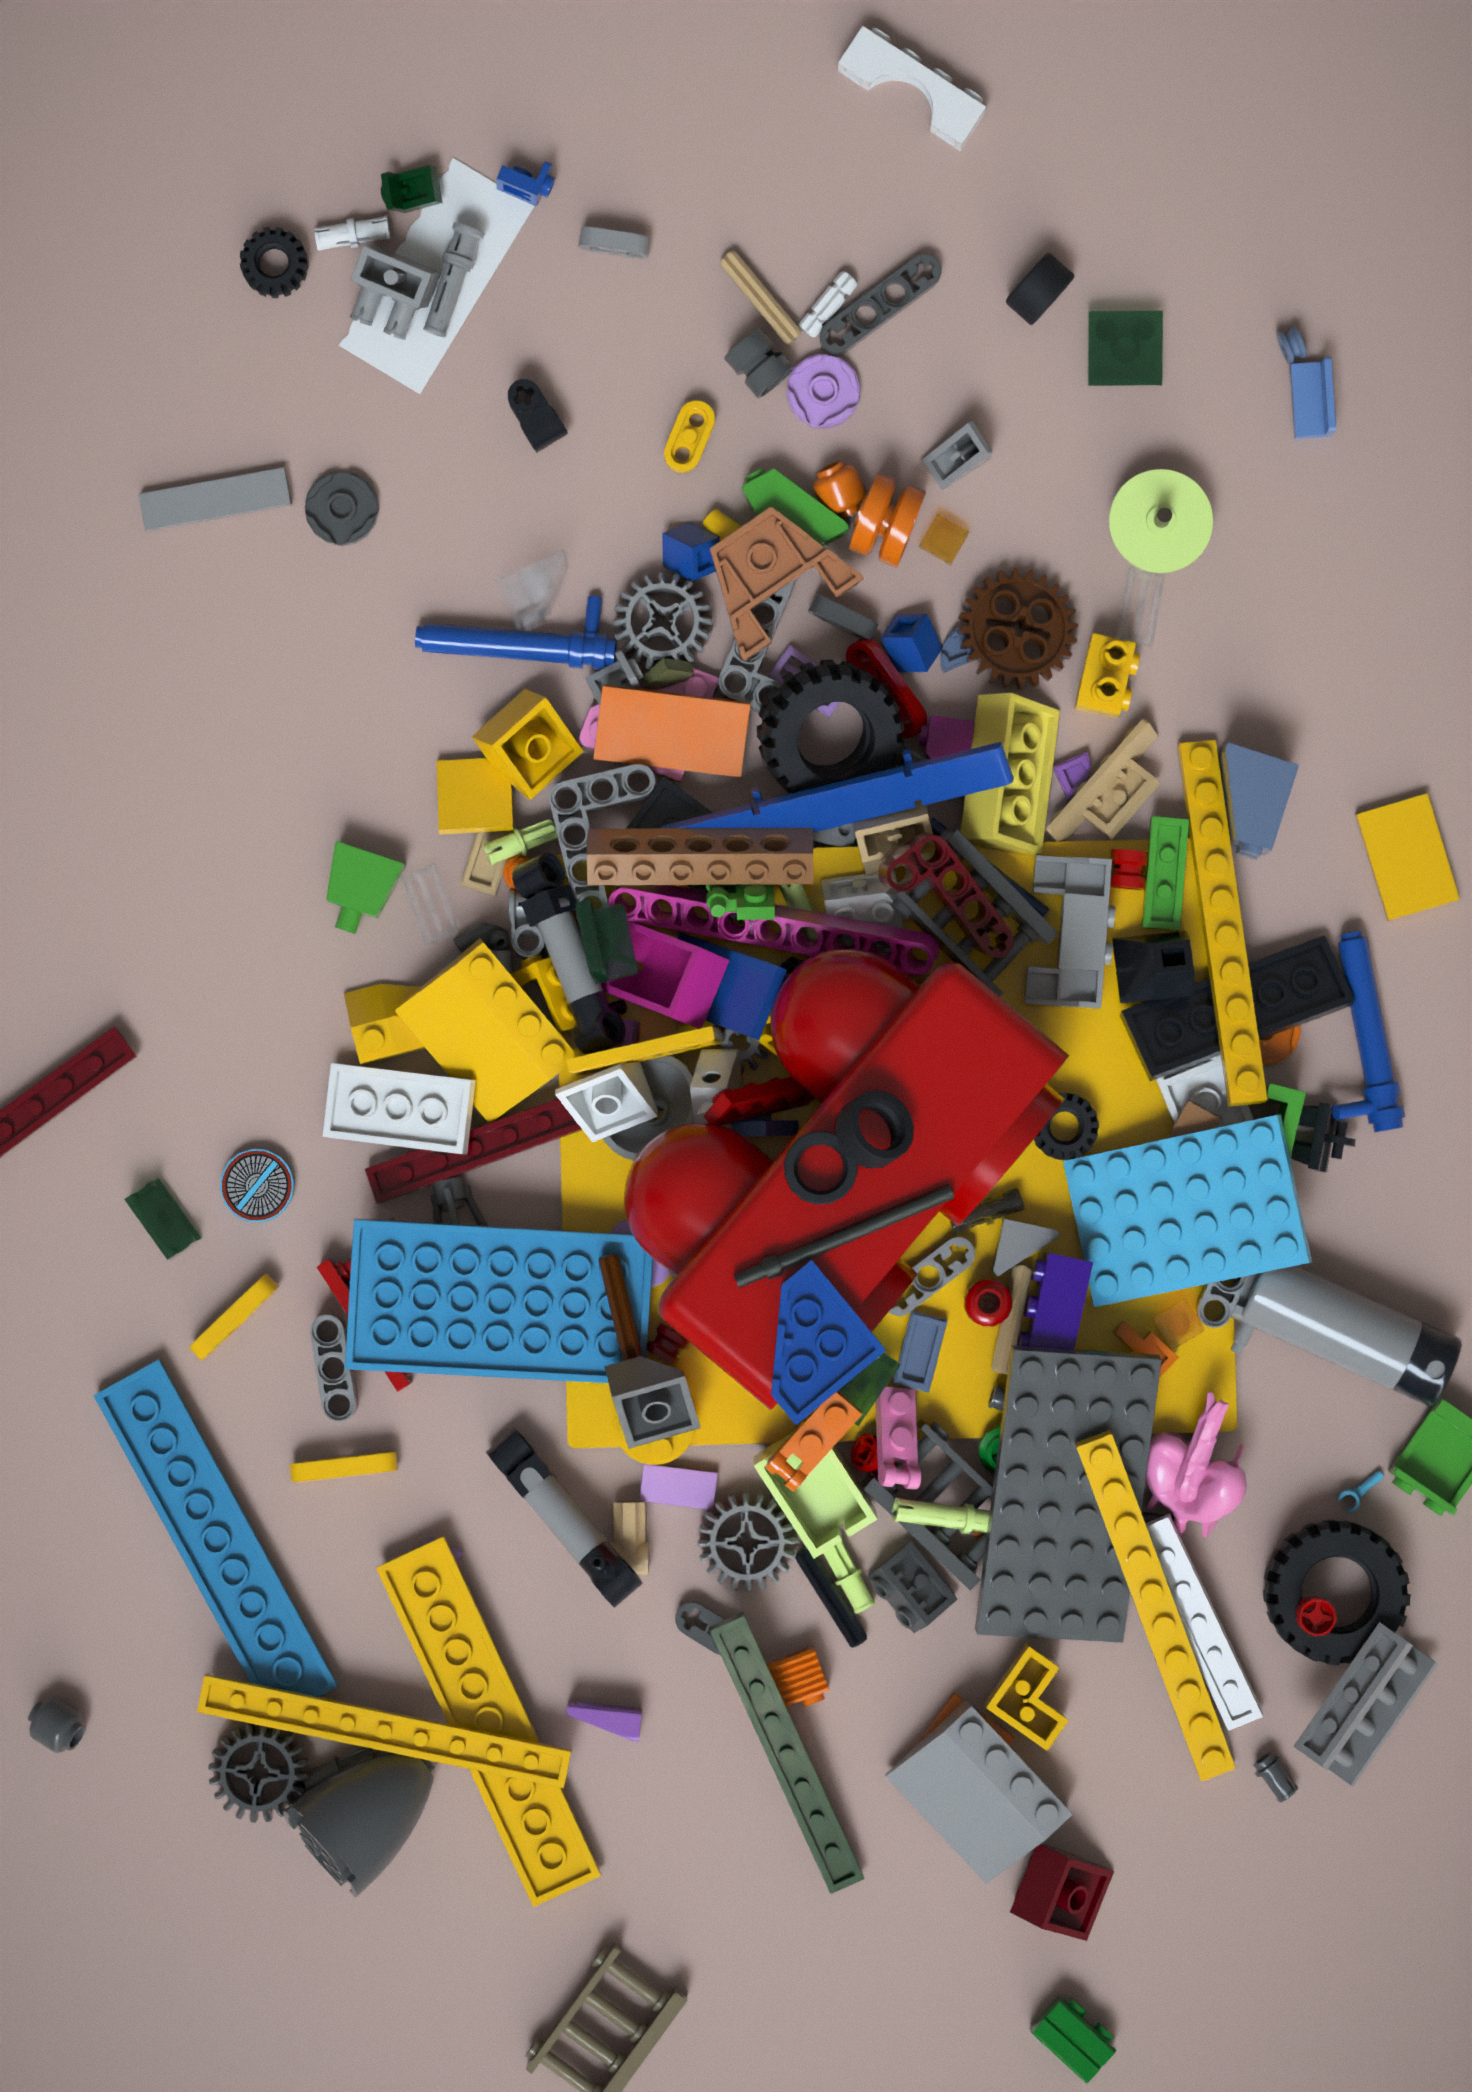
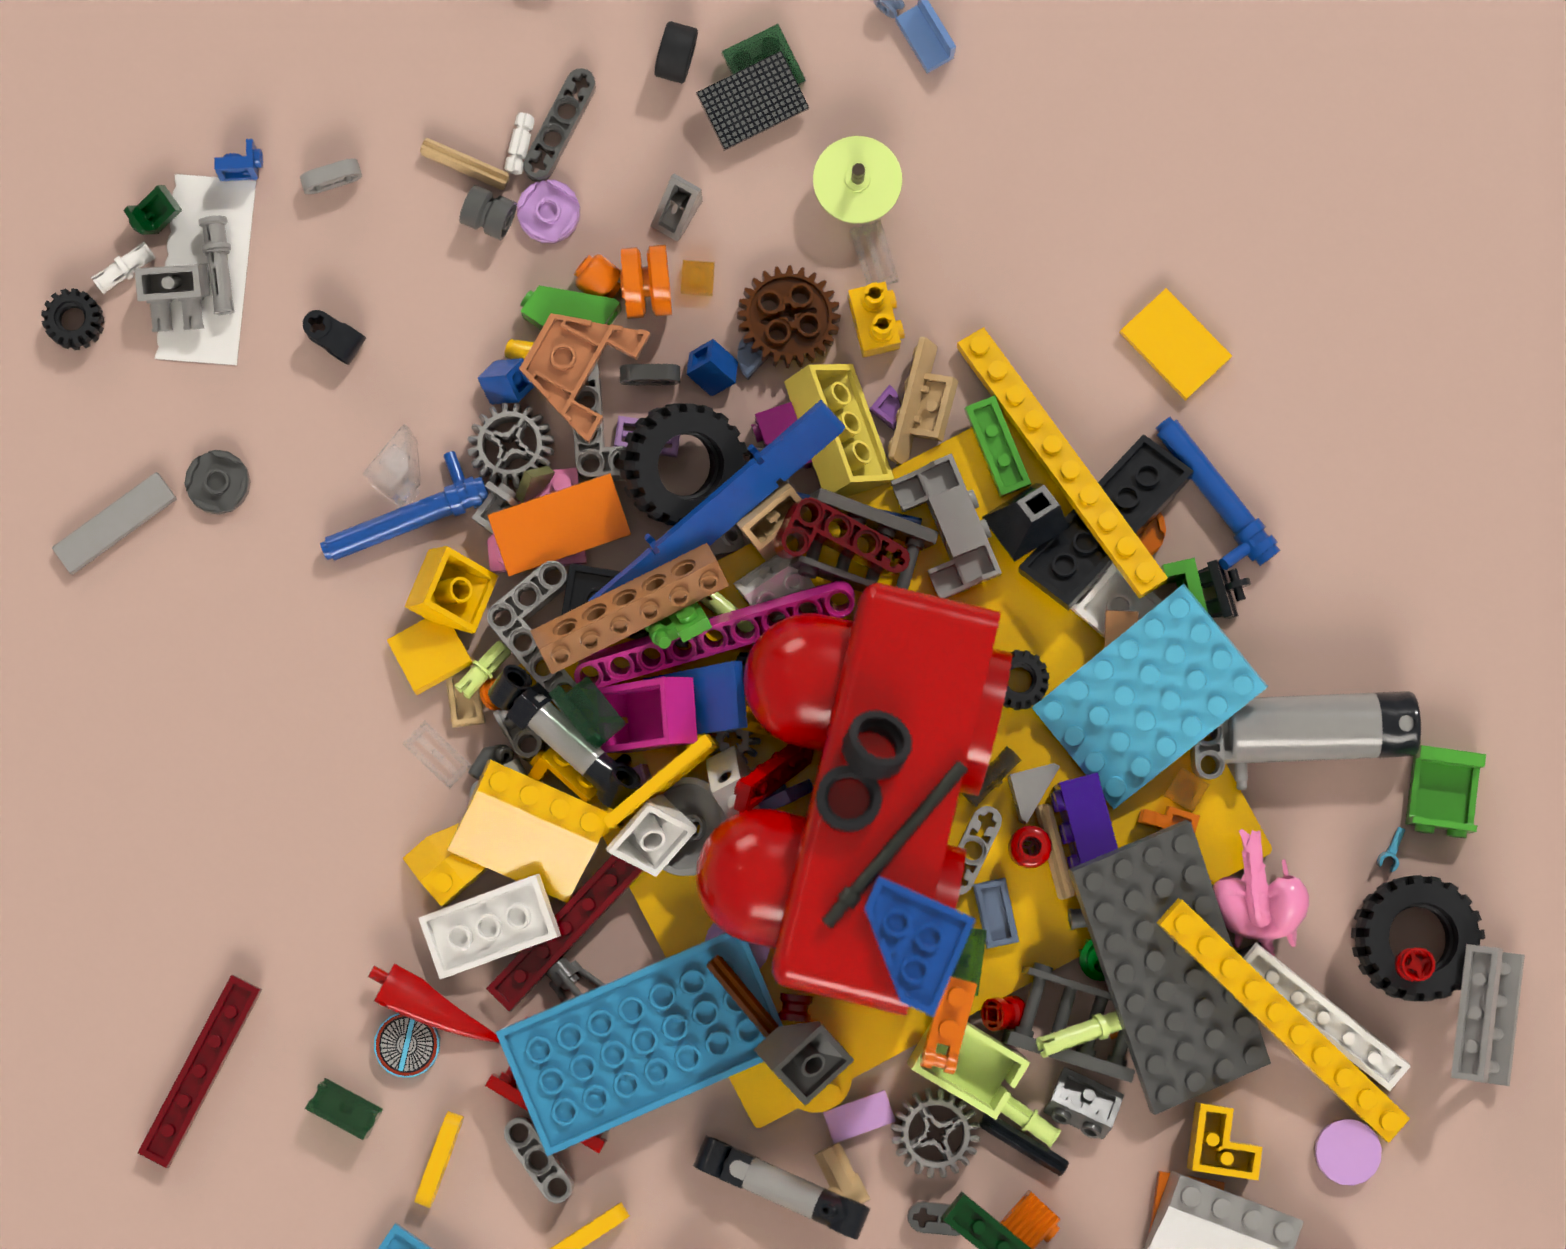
camera: 30 degrees left, 5 degrees down
(290, 1147) = (417, 1000): none -> red piece
(360, 884) = (373, 765): bright green torso -> none
(689, 437) = (462, 296): yellow plate -> none
(872, 658) = (700, 396): red plate -> none
(897, 1438) = (1013, 990): bright pink plate -> none
(1094, 380) = (752, 100): none -> black tile
(1128, 868) = (967, 457): red wheel -> none
(1155, 1769) = (1348, 1152): none -> lavender tile
(1254, 797) = (1037, 352): sand blue slope -> none
(1275, 1776) = (1444, 1109): dark grey pin -> none

